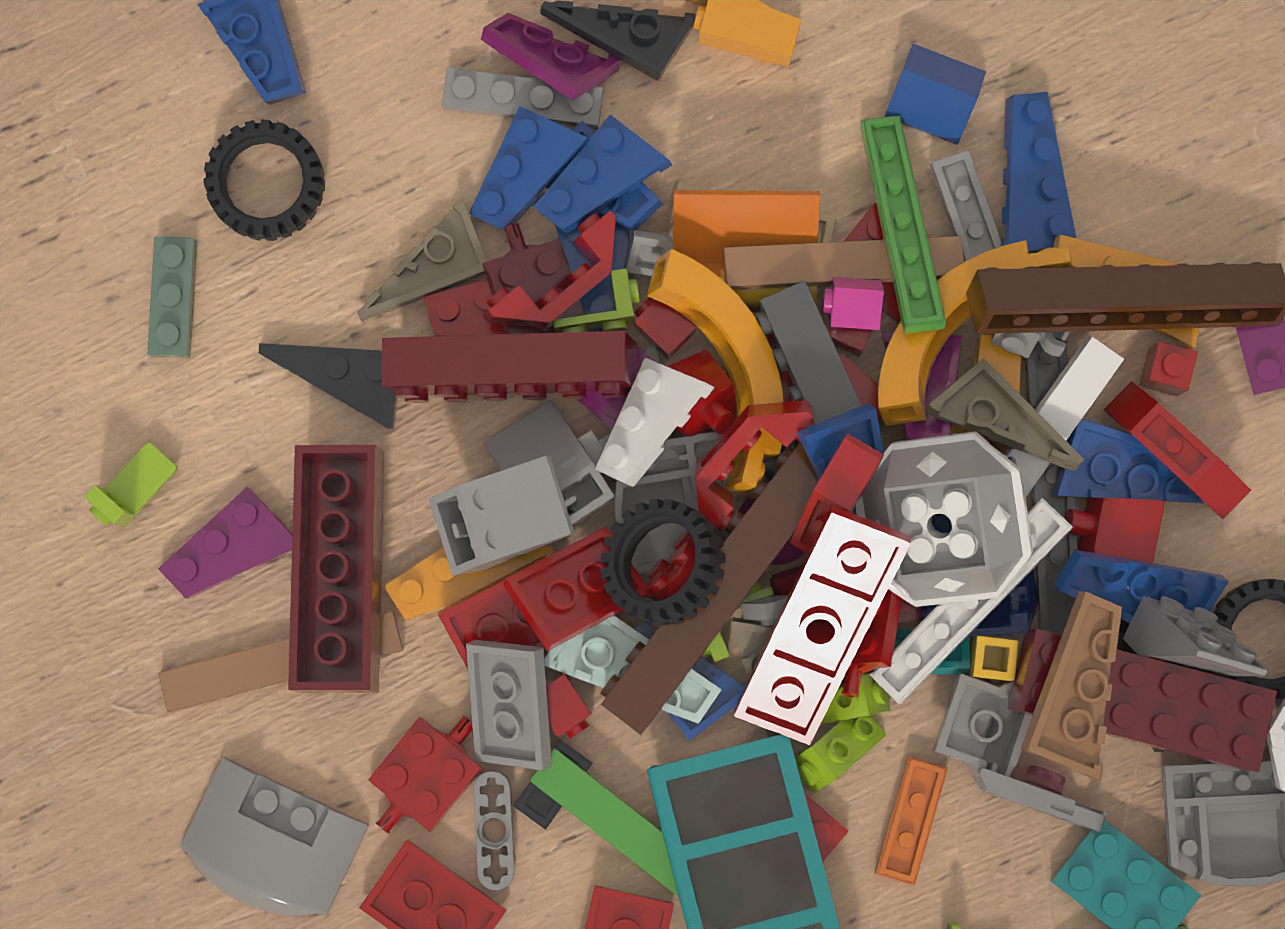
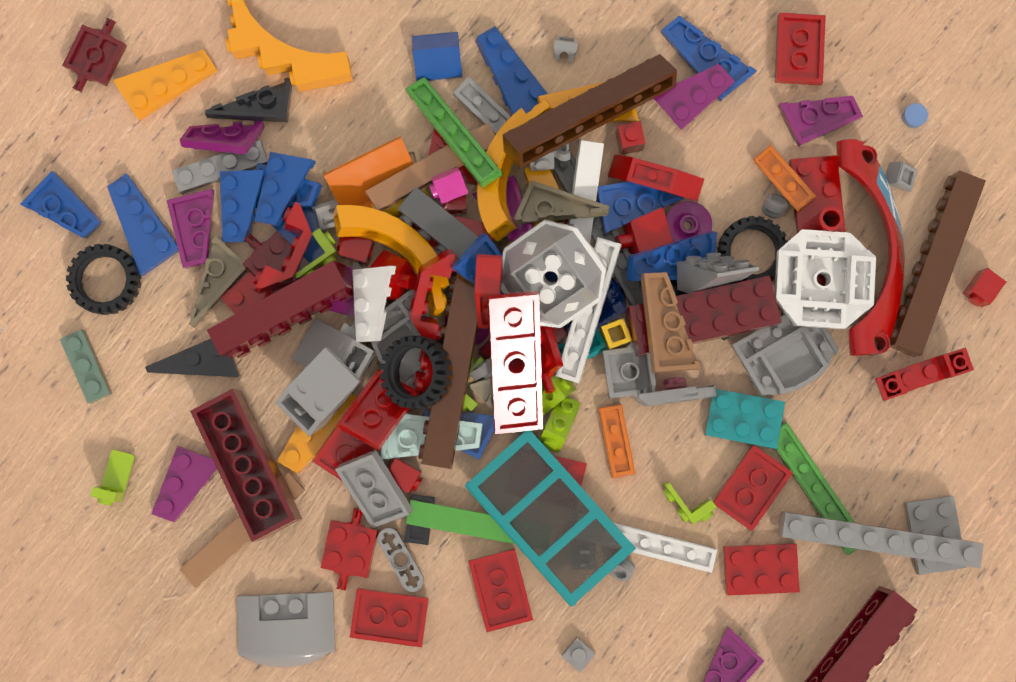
camera: 30 degrees left, 0 degrees up
(360, 137) = (143, 229): none -> blue wing
(435, 167) = (192, 226): none -> magenta wing
(1142, 175) = (565, 44): none -> light grey tile
(1207, 533) = (692, 213): none -> magenta dish

